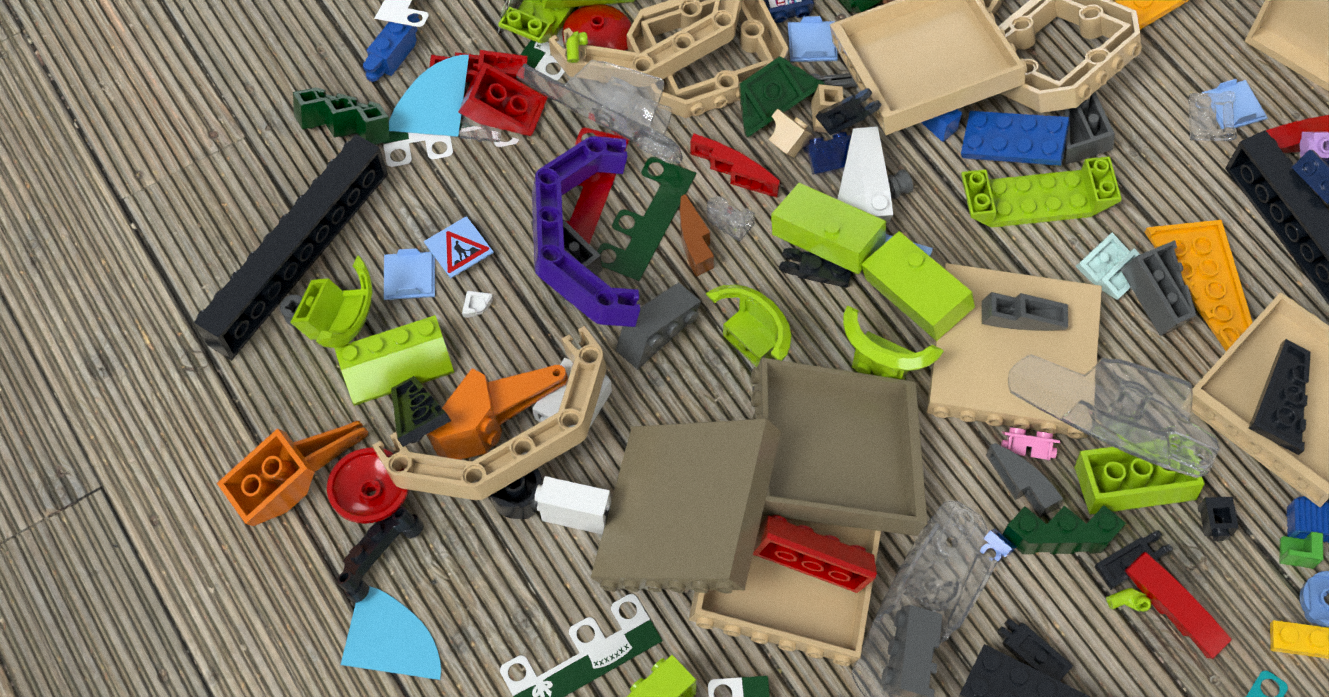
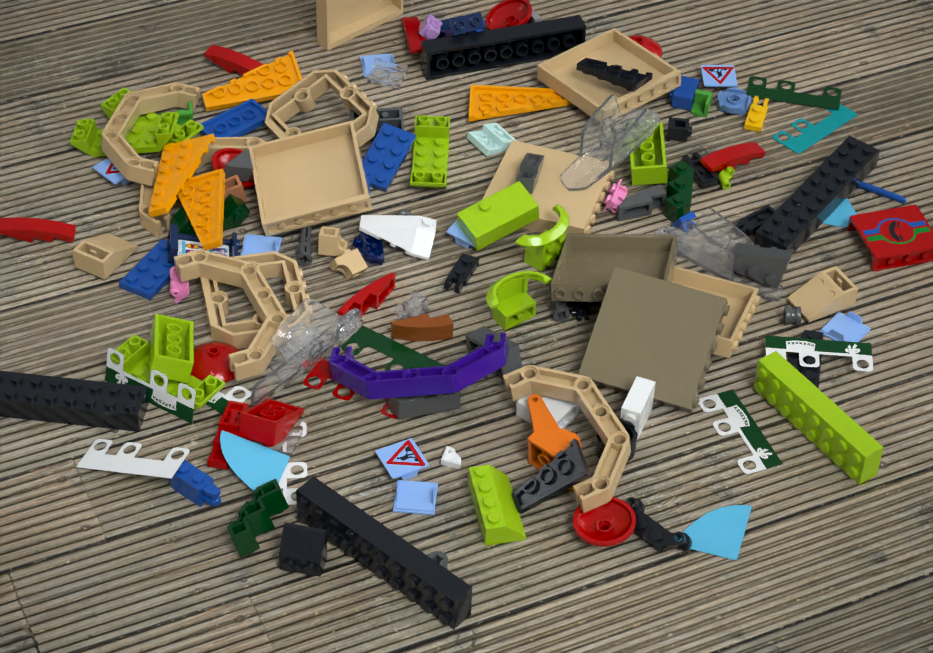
camera: 85 degrees left, 20 degrees down
(281, 471) = (588, 568): orange slope -> none
(293, 168) = (303, 549): none -> black slope
(332, 314) = (451, 526): lime piece -> none
(572, 46) = (248, 347): lime arm -> none
(773, 88) = (314, 266): dark green wing -> none
(815, 554) = (703, 273): red slope -> none
(828, 227) = (439, 253): lime brick -> none
(847, 112) = (352, 220): black hinge -> none
(1160, 287) = (519, 117): dark grey wedge -> none

